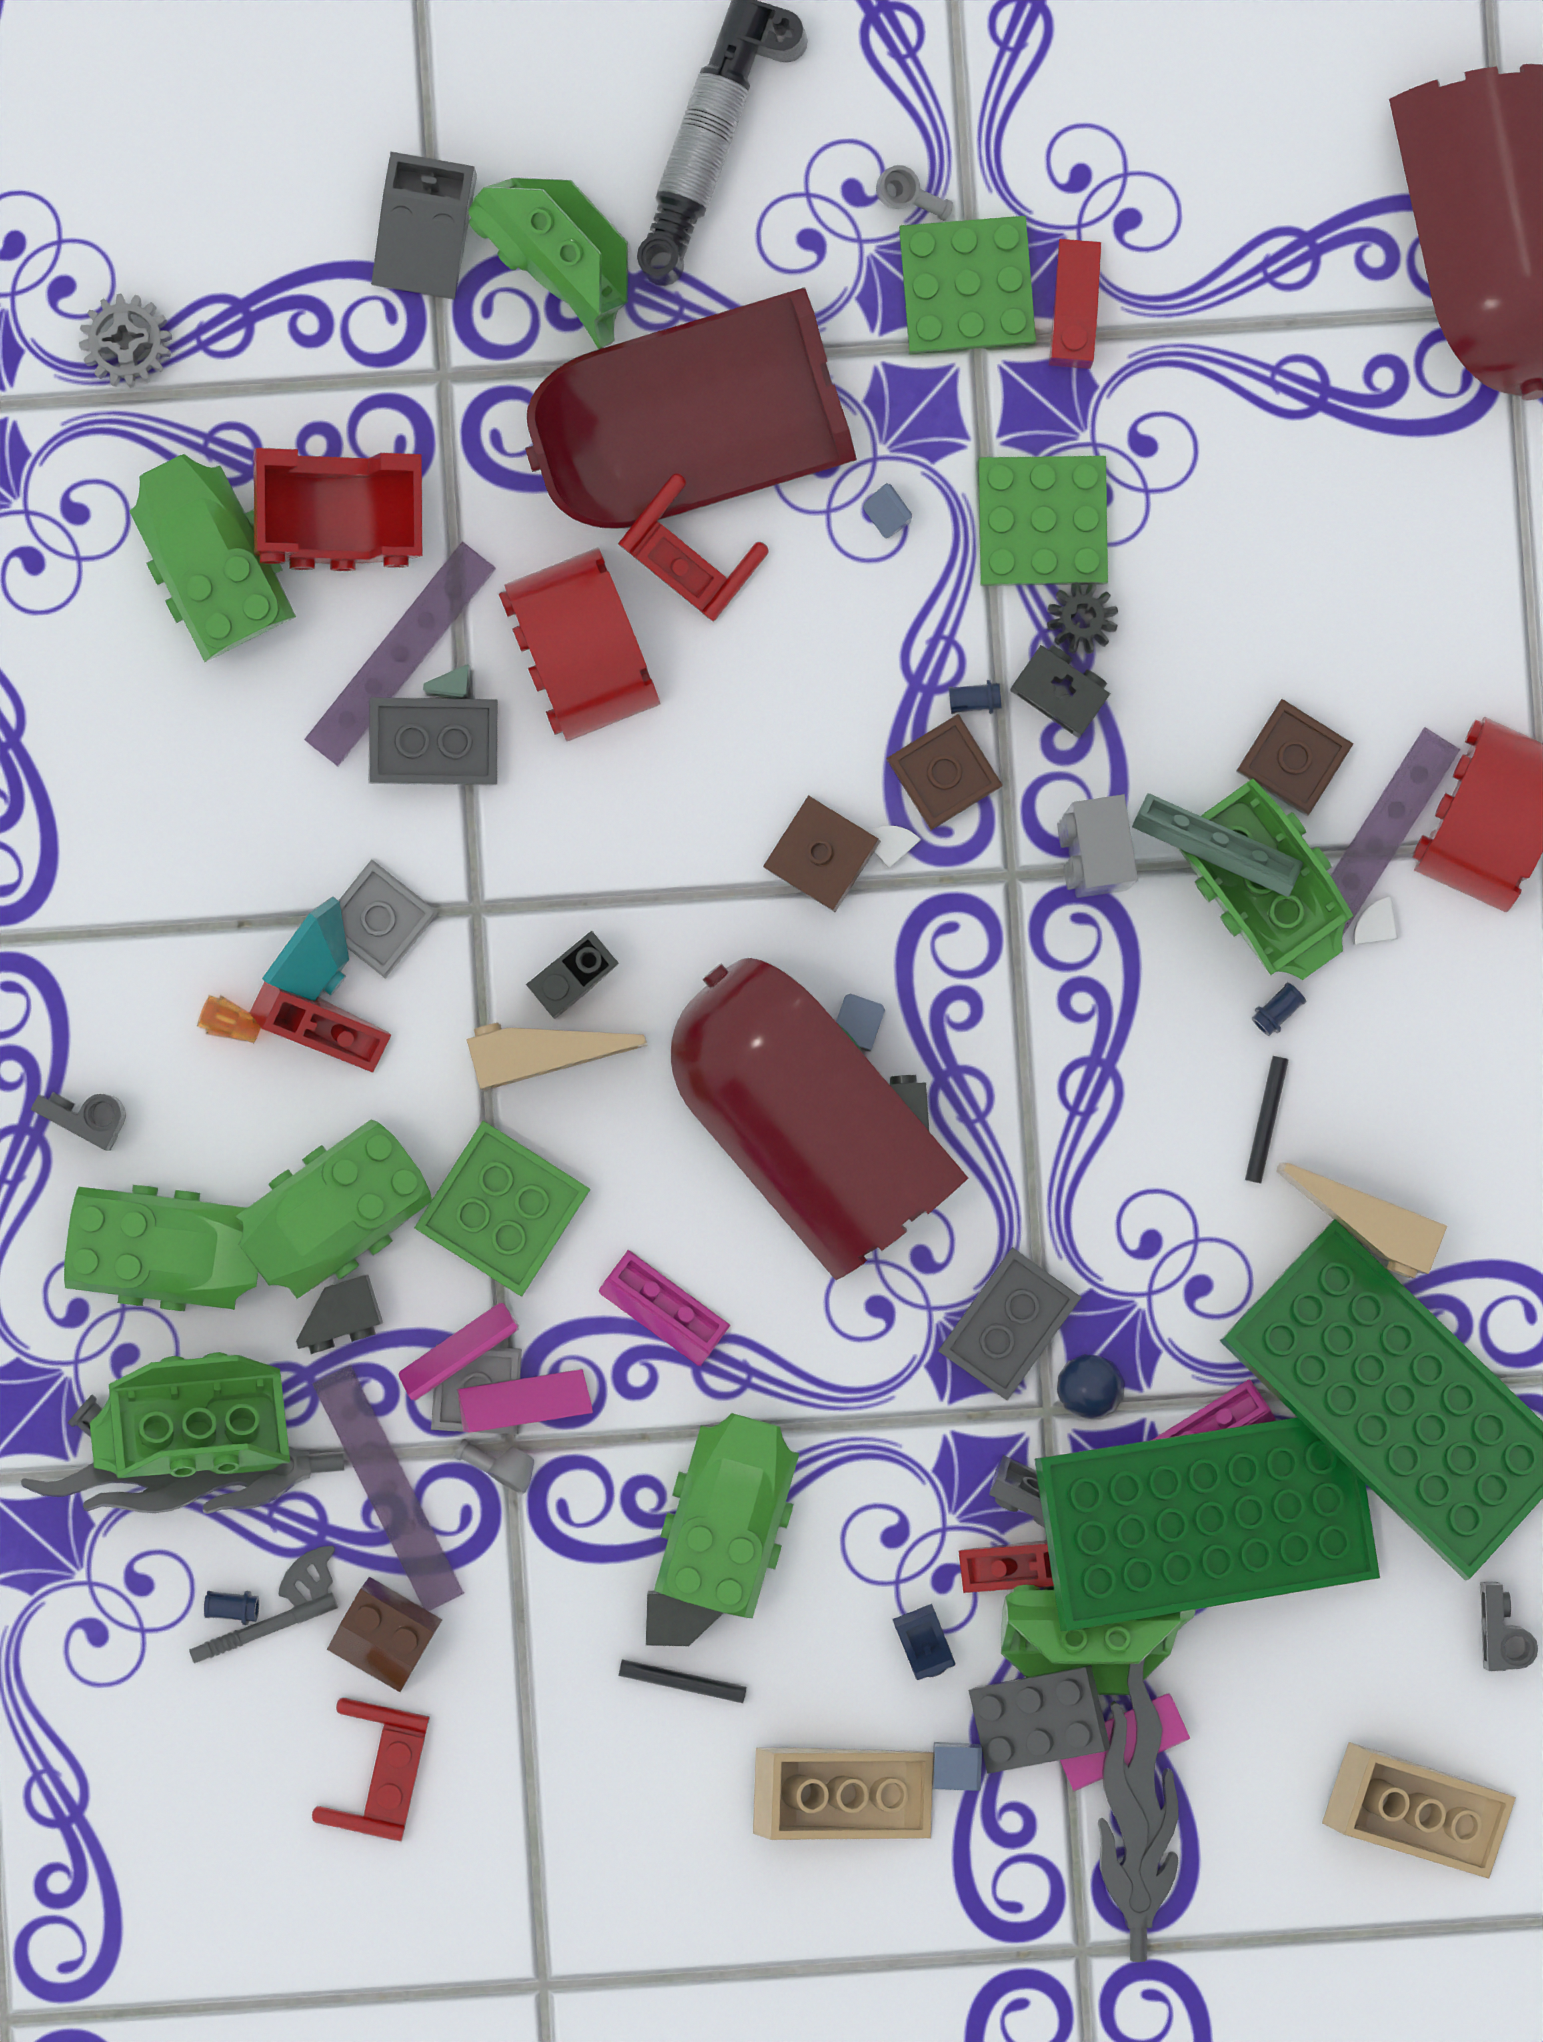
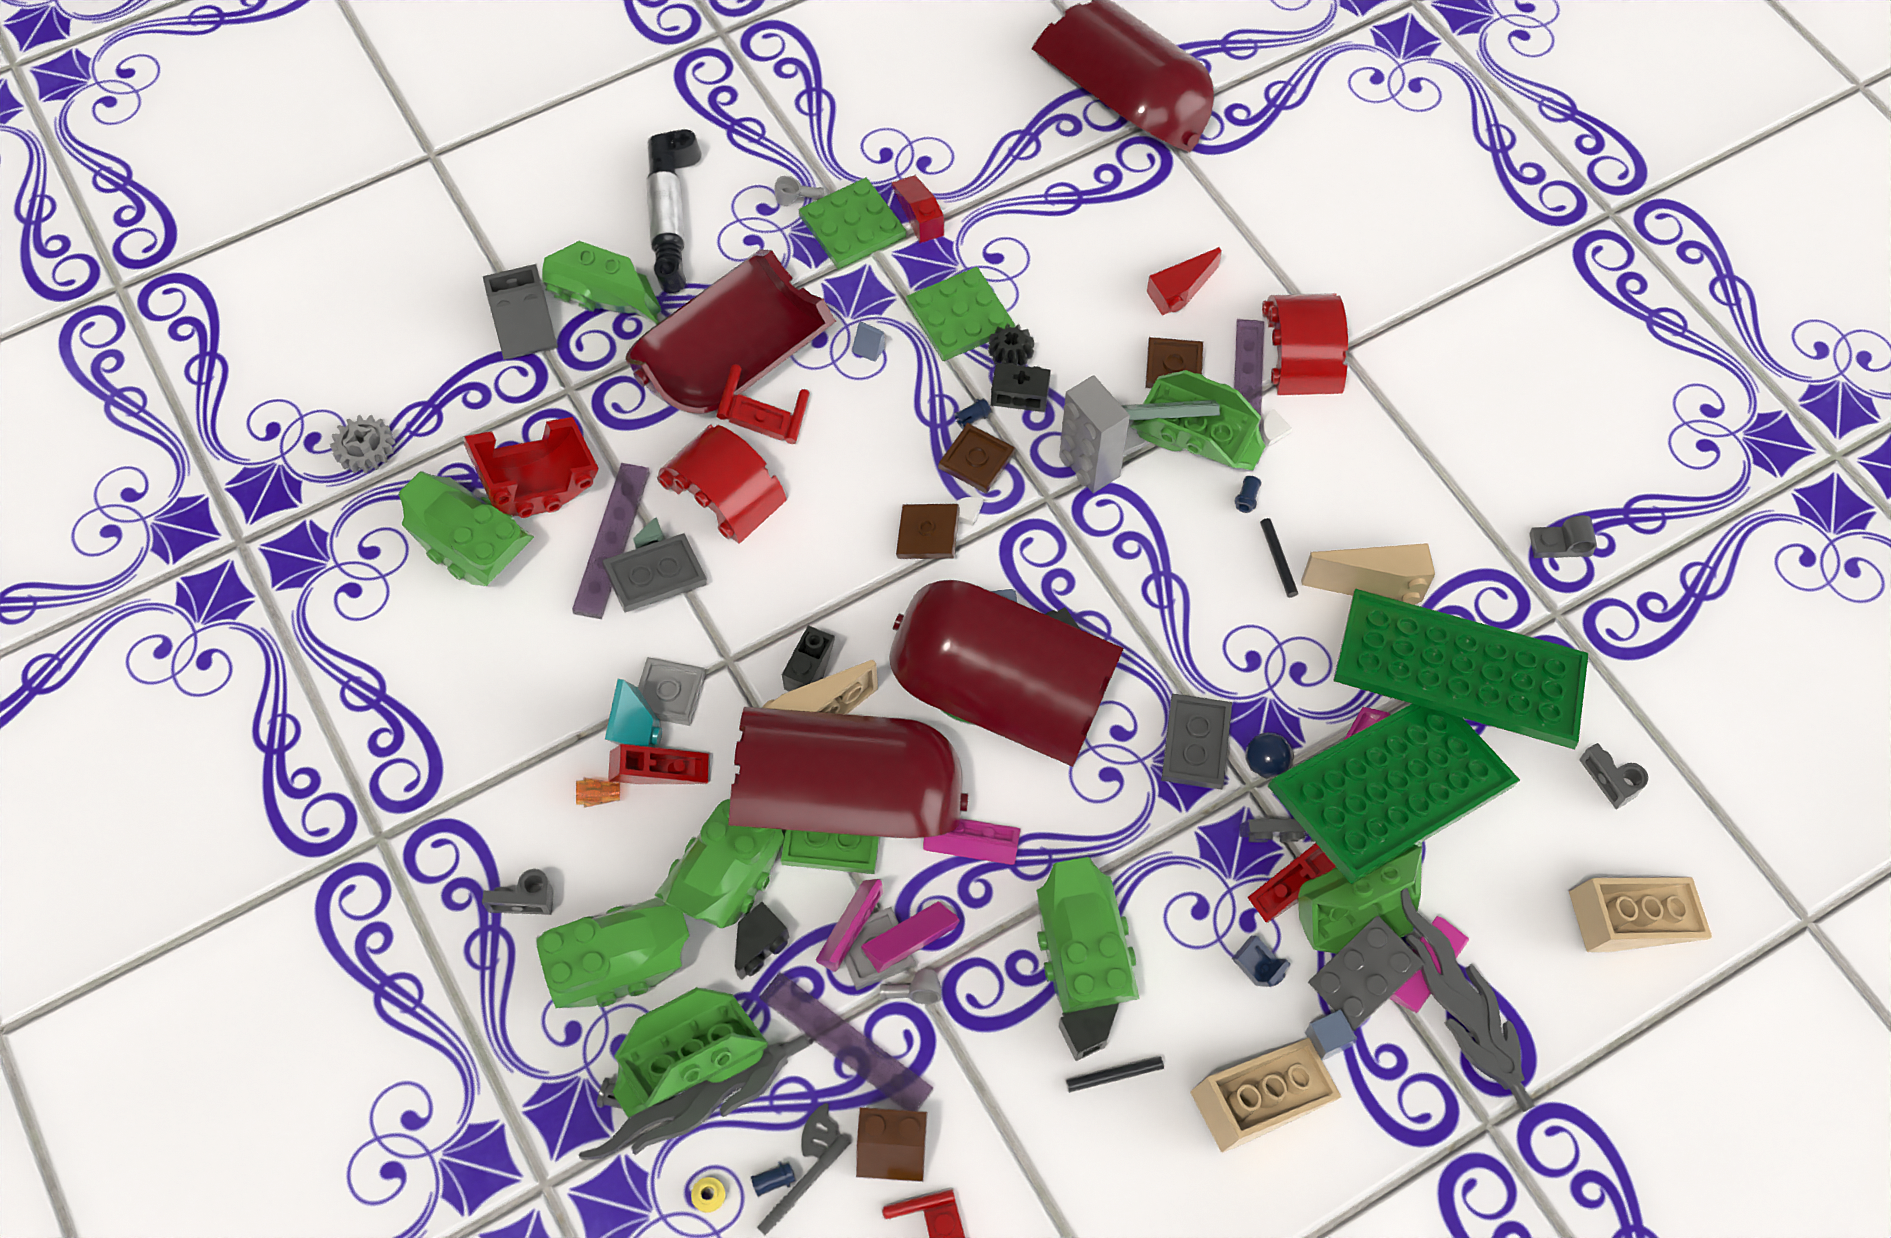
camera: 25 degrees left, 25 degrees down
(162, 1580) = (713, 1204): none -> light yellow plate
(534, 1179) = (845, 775): none -> dark red panel
(1371, 631) = (1178, 284): none -> red slope

